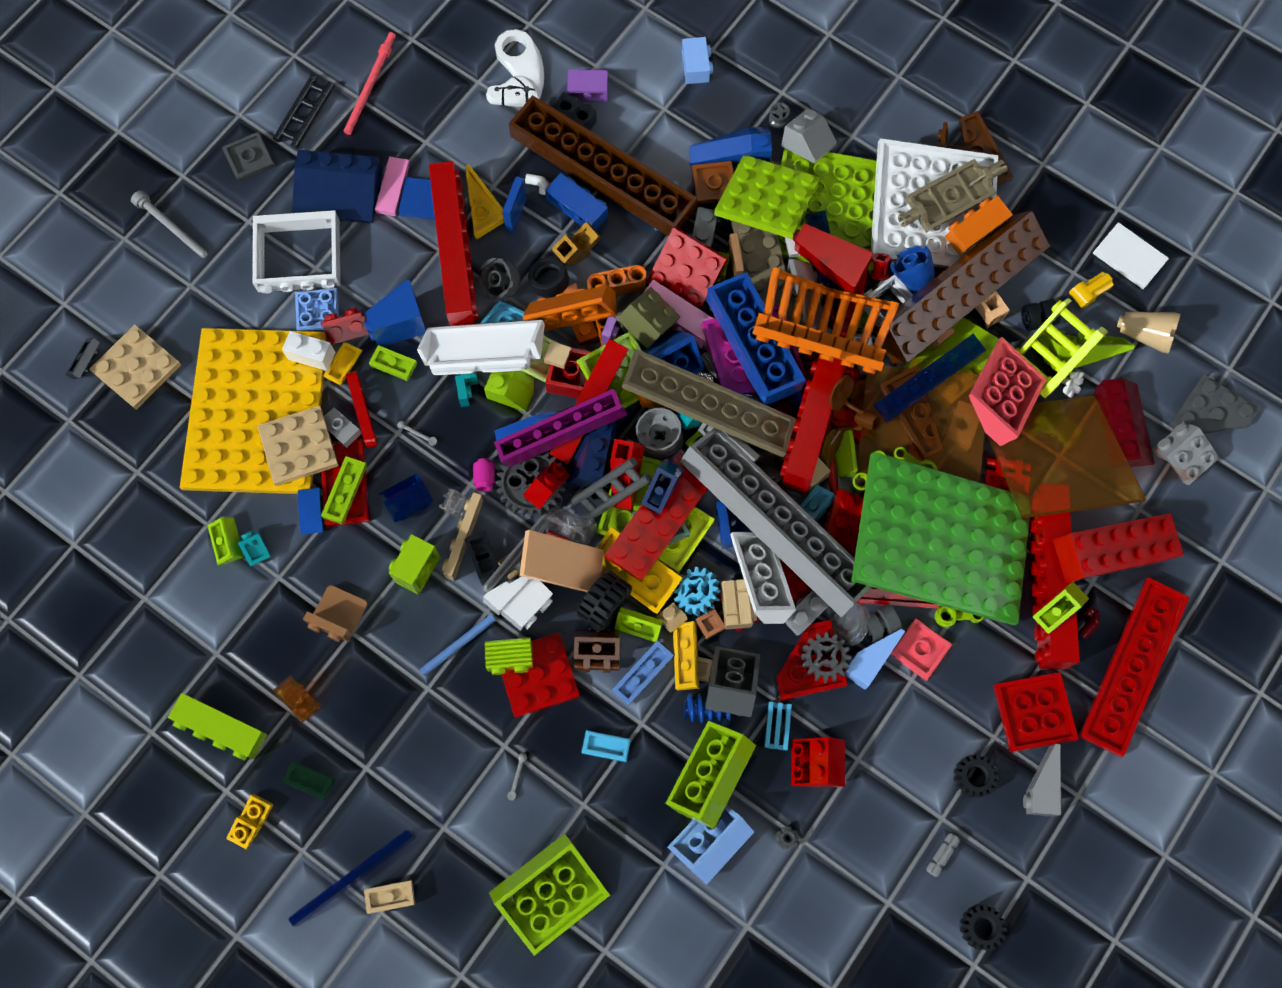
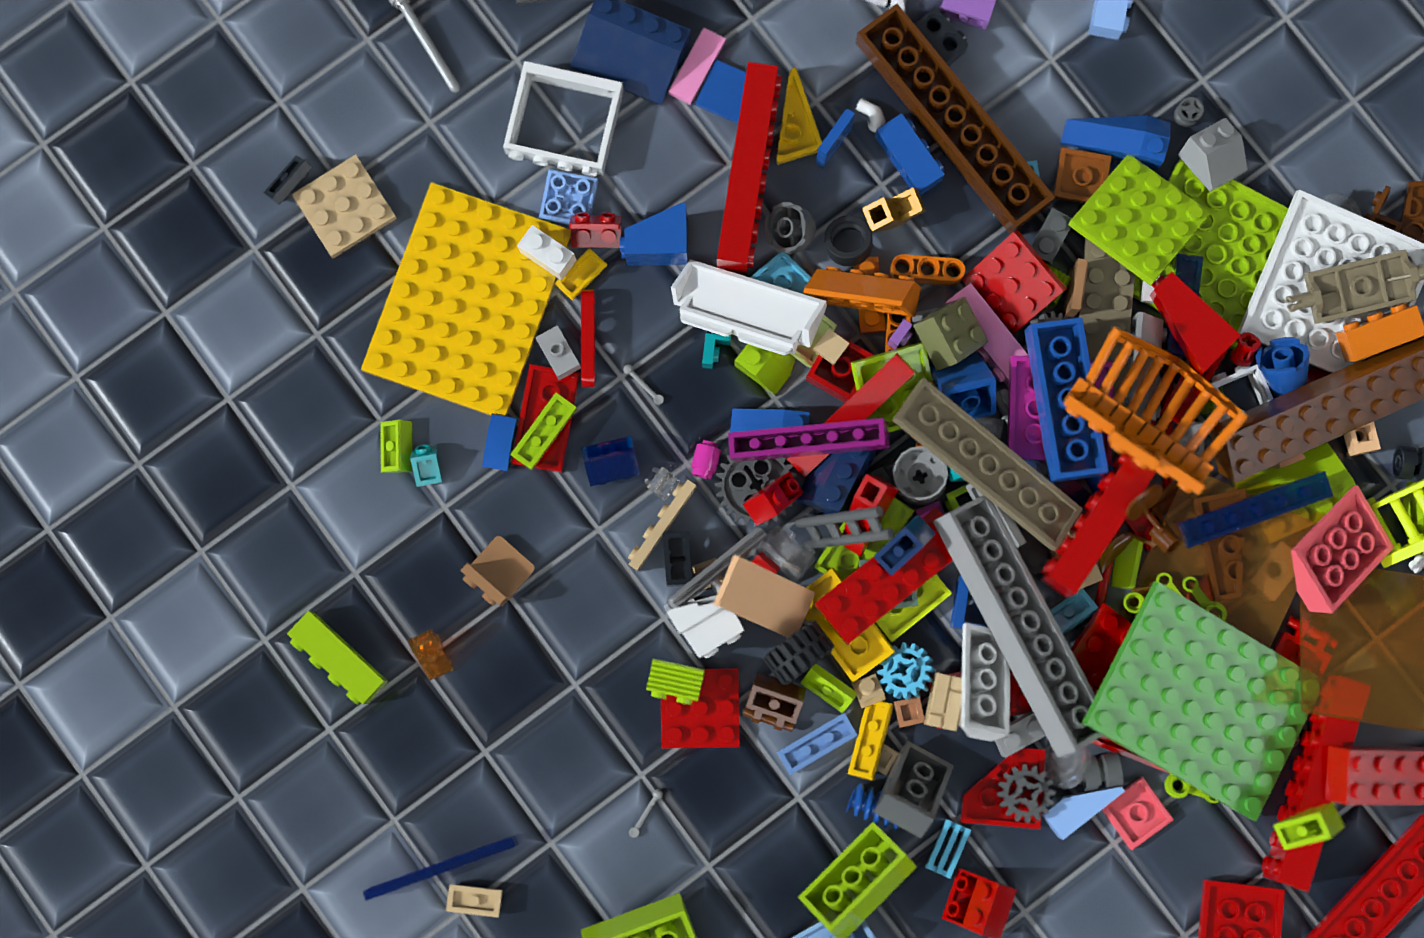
camera: 20 degrees right, 10 degrees up
(250, 821) = (347, 771): yellow slope -> none
(297, 446) = (505, 362): tan plate -> none
(308, 780) = (420, 747): clear green plate -> none
(393, 363) = (638, 292): lime plate -> none
(414, 564) = (599, 543): lime brick -> none
(455, 646) = (621, 646): medium blue bar -> none
(606, 746) = (752, 811): medium azure tile -> none
(1092, 624) = (1342, 845): dark red arm -> none

